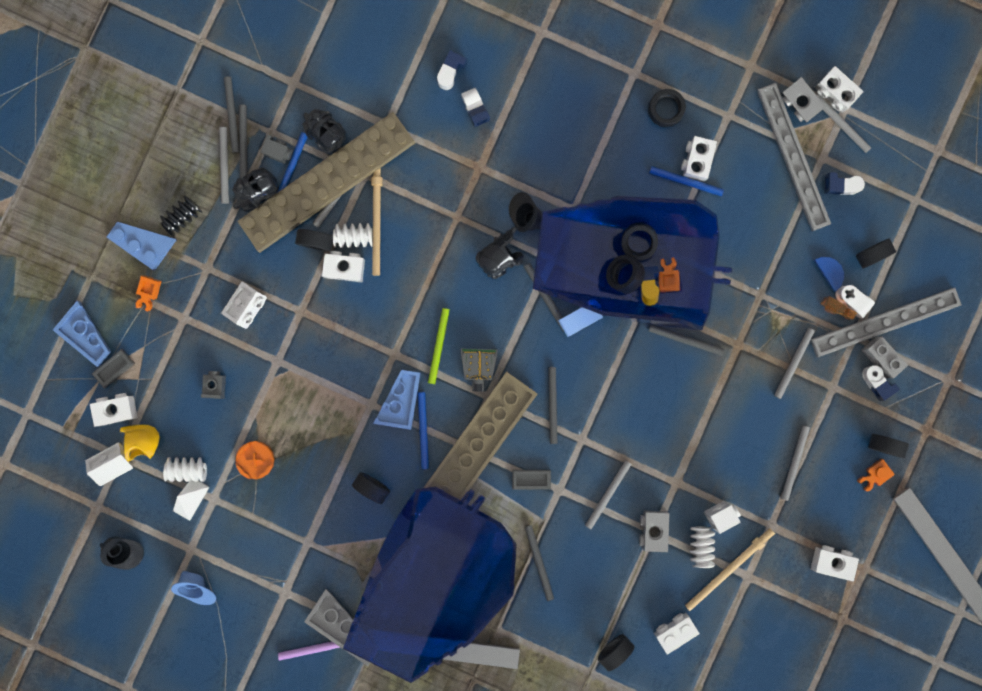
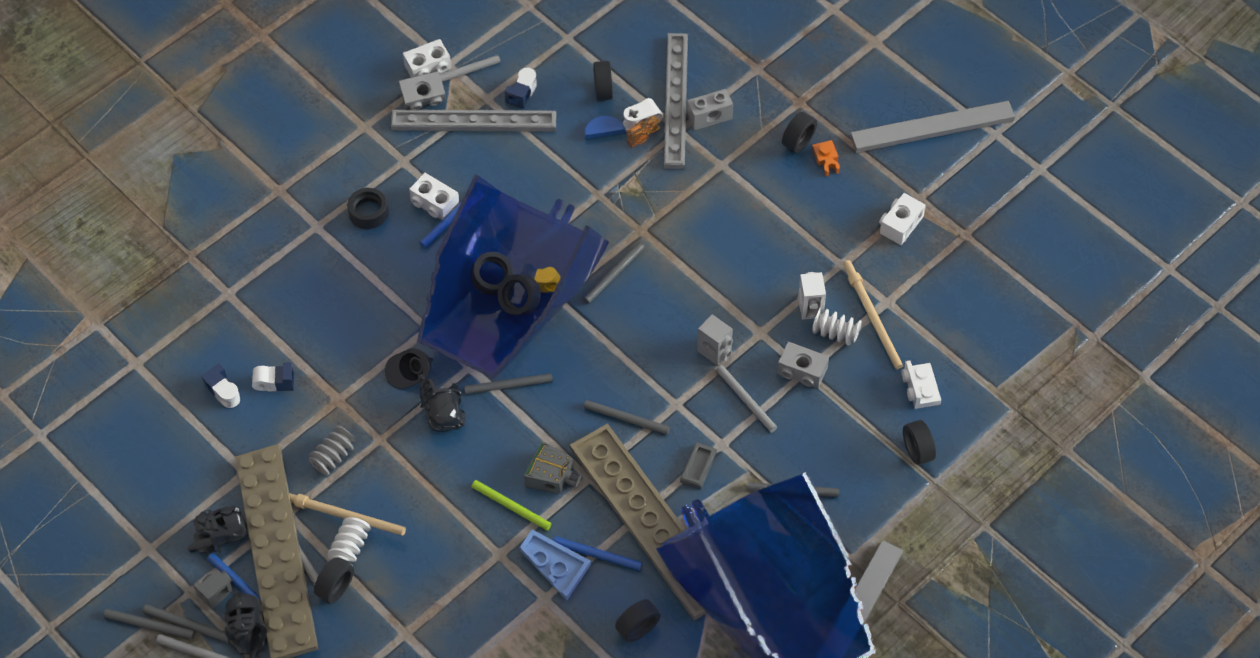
camera: 70 degrees left, 30 degrees down
(353, 273) = (377, 578): white brick -> none
(424, 185) = (330, 450): none -> light grey piece
(578, 320) = (546, 358): light blue slope -> none
(646, 453) = (715, 340): none -> light grey brick
(669, 279) = (541, 259): orange plate -> none
(794, 363) = (682, 188): light grey bar -> none
(795, 463) = (785, 221): light grey bar -> none
(878, 384) = (733, 123): leg -> none

